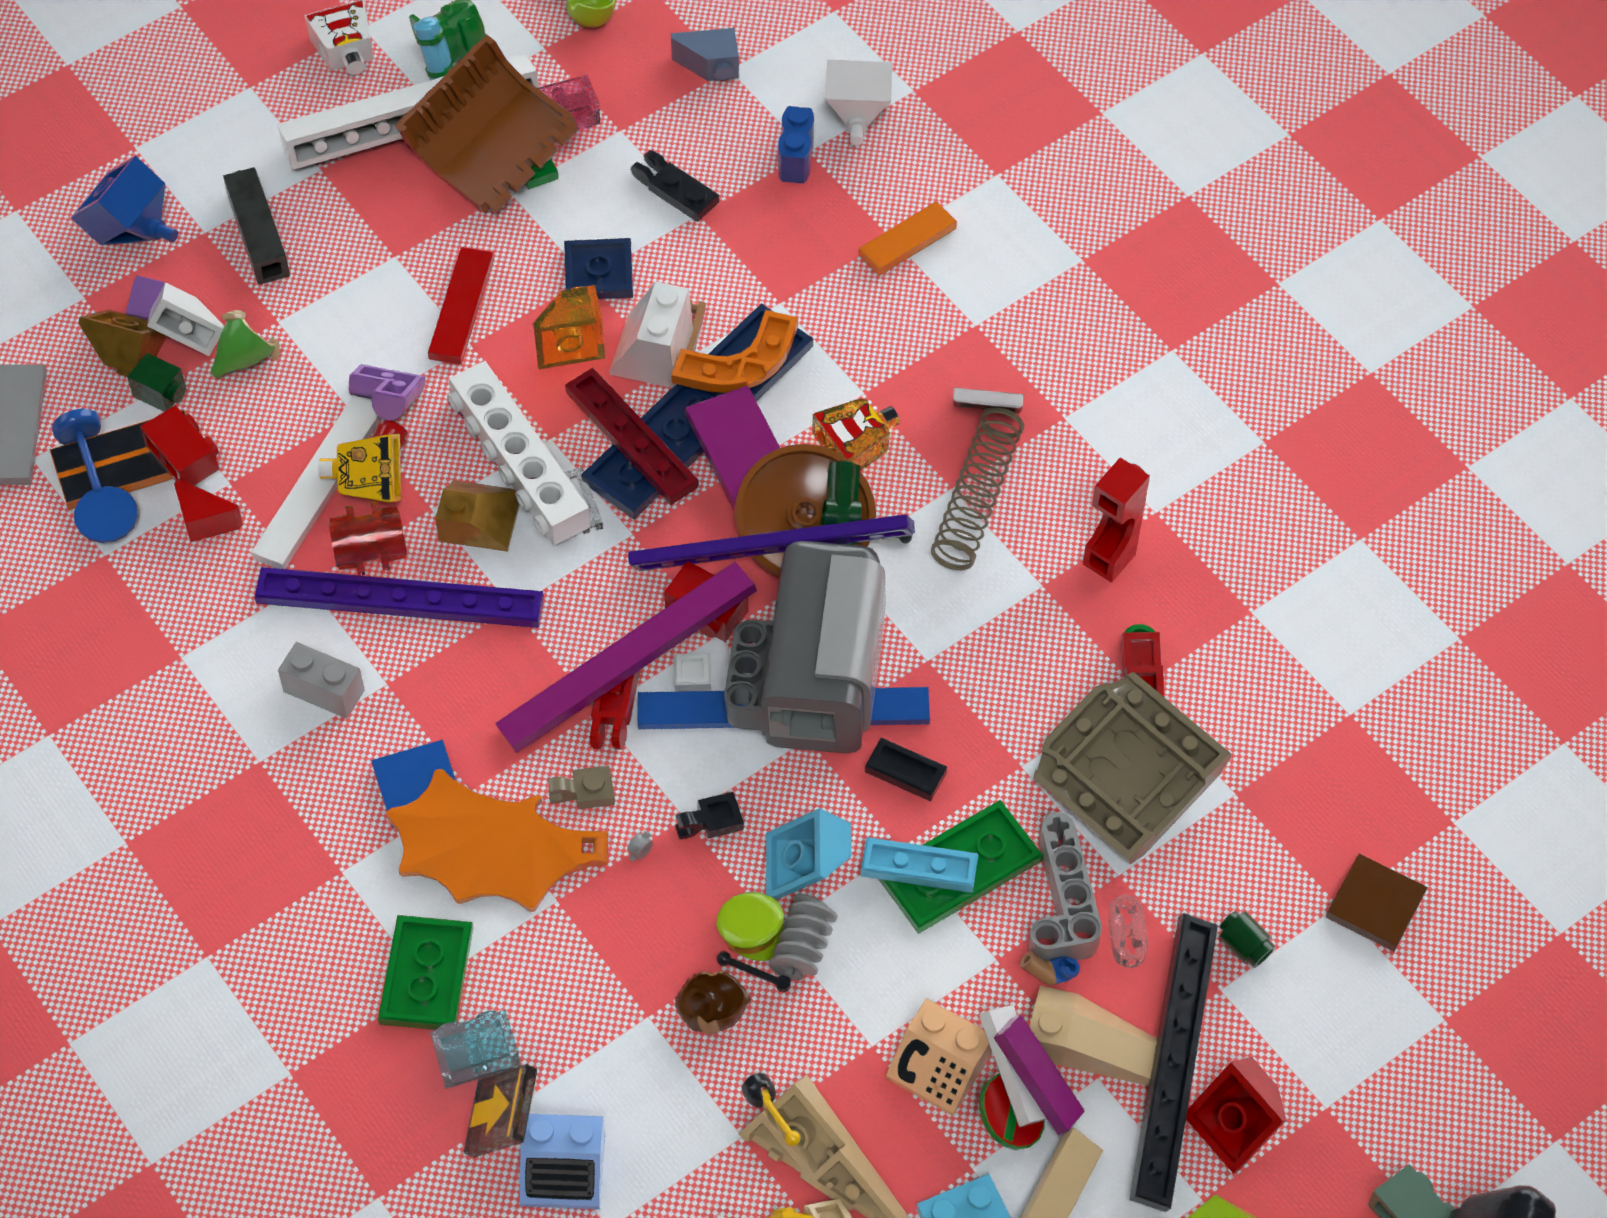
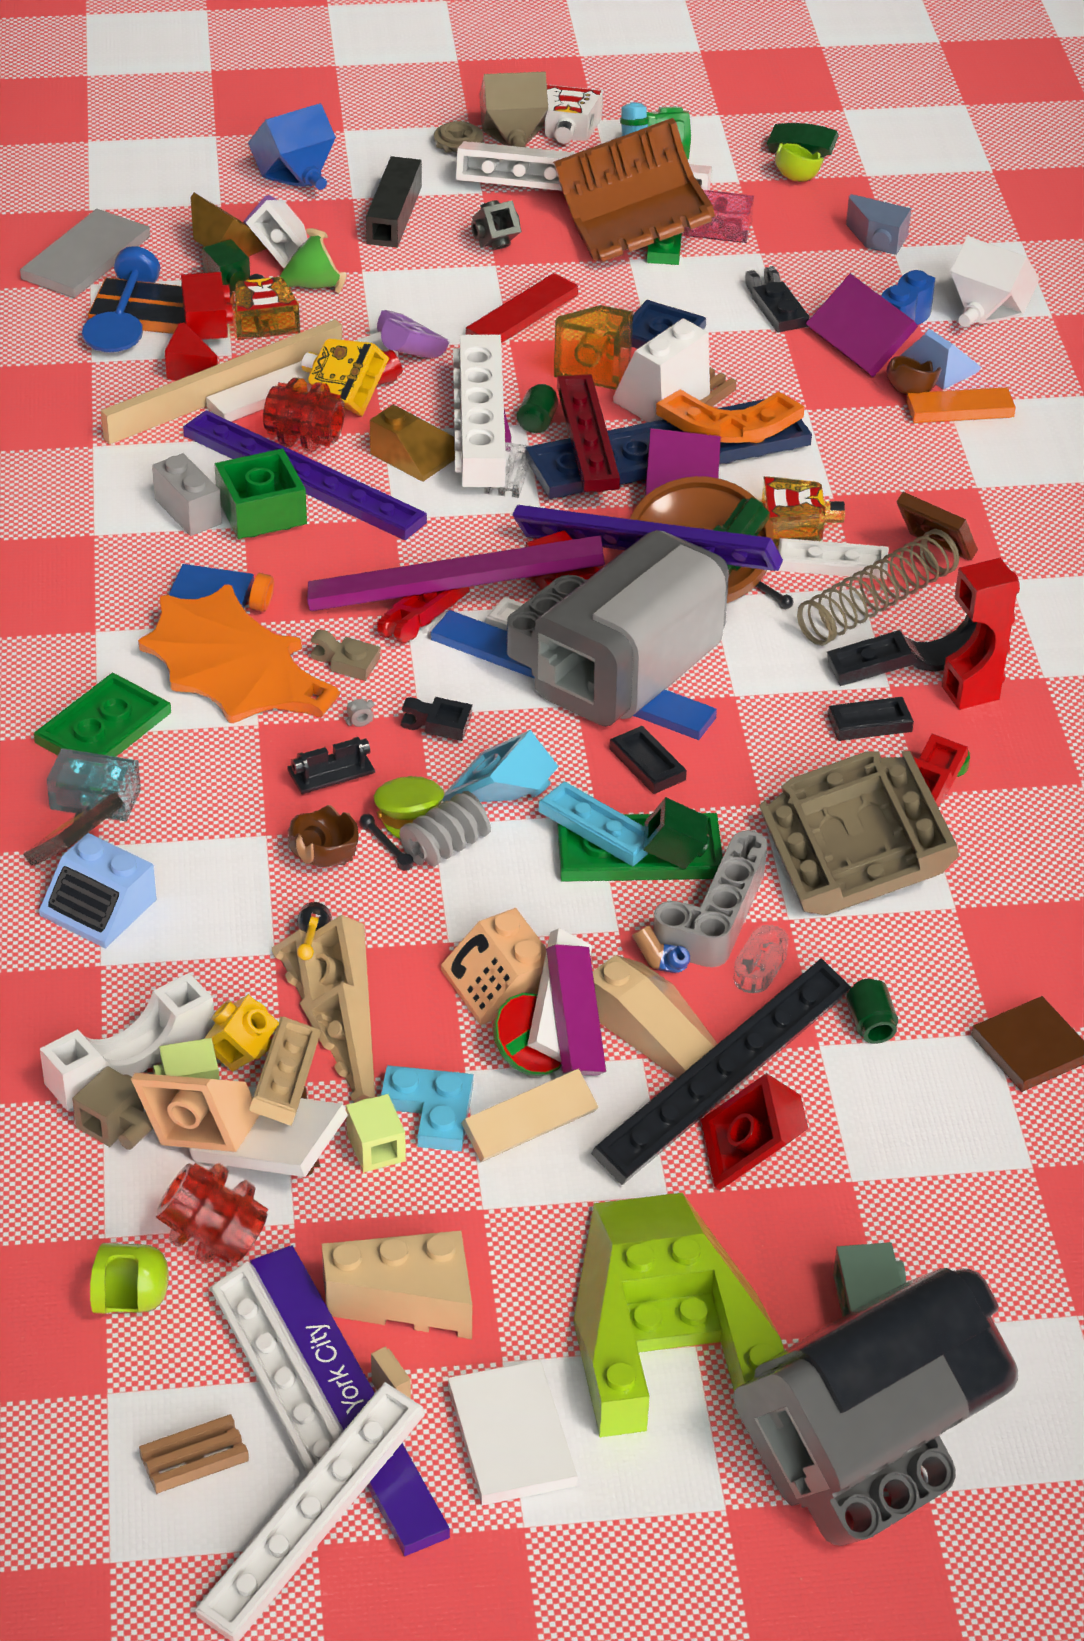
camera: 30 degrees right, 15 degrees down
(229, 415) = (265, 308): none -> clear yellow torso
(239, 549) = (191, 392): none -> tan tile
(246, 104) = (454, 133): none -> dark tan gear
(298, 63) = (513, 106): none -> dark tan piece
(375, 215) = (496, 224): none -> pearl dark grey brick
(391, 648) = (261, 493): none -> green brick
(466, 758) = (261, 592): none -> orange tile
(559, 421) = (537, 408): none -> dark green brick
(658, 919) = (319, 770): none -> black hinge
(776, 189) = (862, 325): none -> magenta tile
(852, 226) = (911, 376): none -> reddish brown hair
(862, 197) = (942, 353): none -> light blue slope
(914, 468) = (830, 557): none -> white tile
(997, 850) = (676, 833): none -> dark green brick
(1039, 546) = (895, 652): none -> black piece
(1052, 631) = (870, 718): none -> black tile

